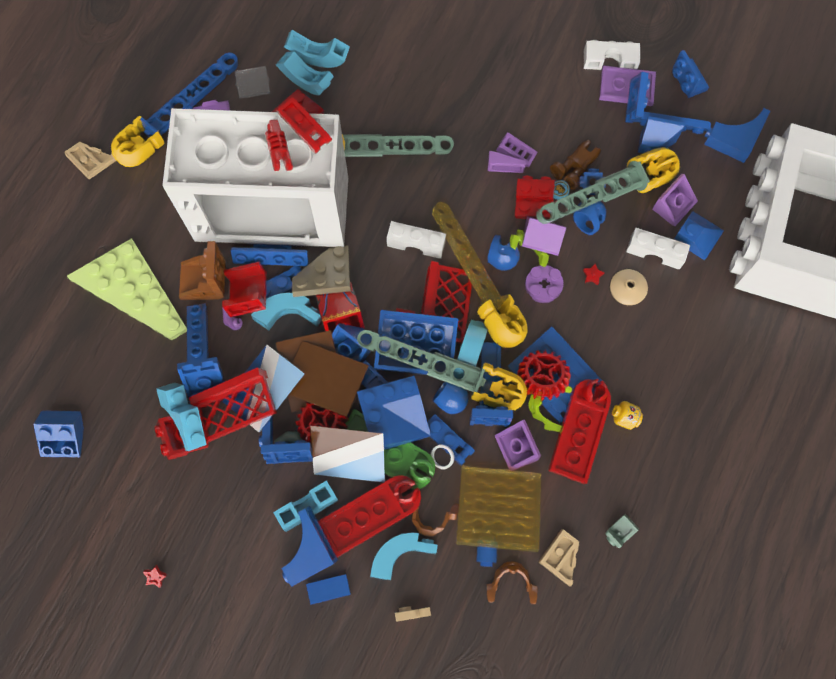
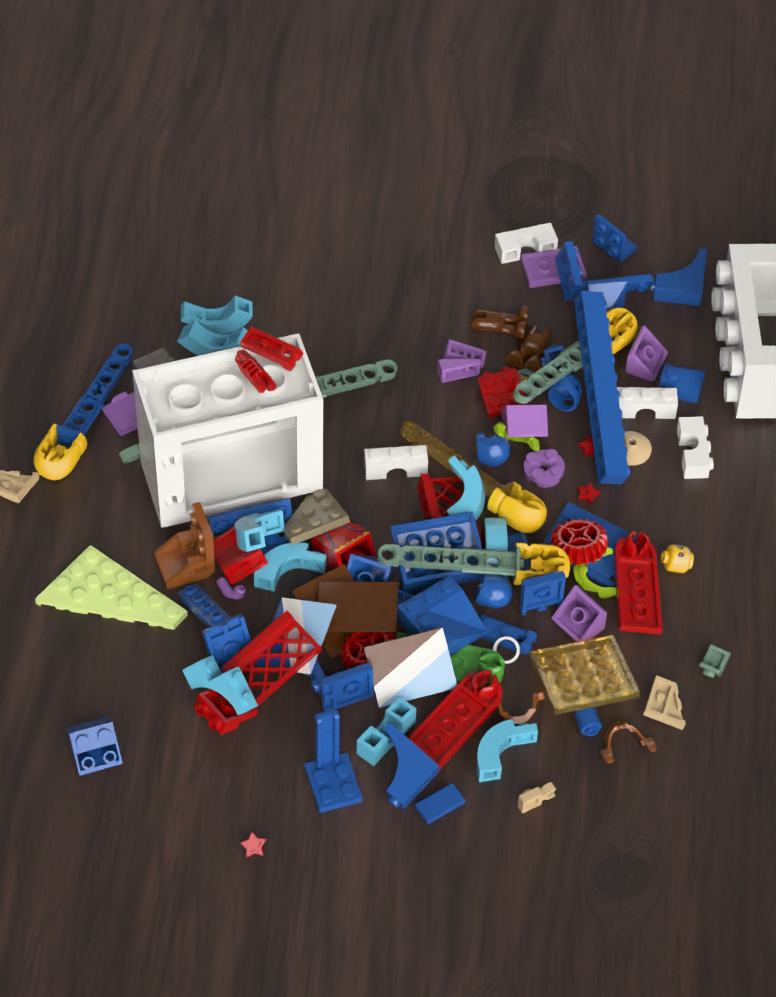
camera: 20 degrees left, 20 degrees down
(244, 532) = (331, 772): none -> blue bracket
(264, 271) = (253, 527): none -> medium azure arch
(468, 297) = (474, 492): none -> medium azure arch
(555, 126) = (496, 322): none -> reddish brown piece
(573, 320) = (587, 493): none -> red piece
(621, 225) = (601, 388): none -> blue brick
(689, 291) = (693, 433): none -> white arch

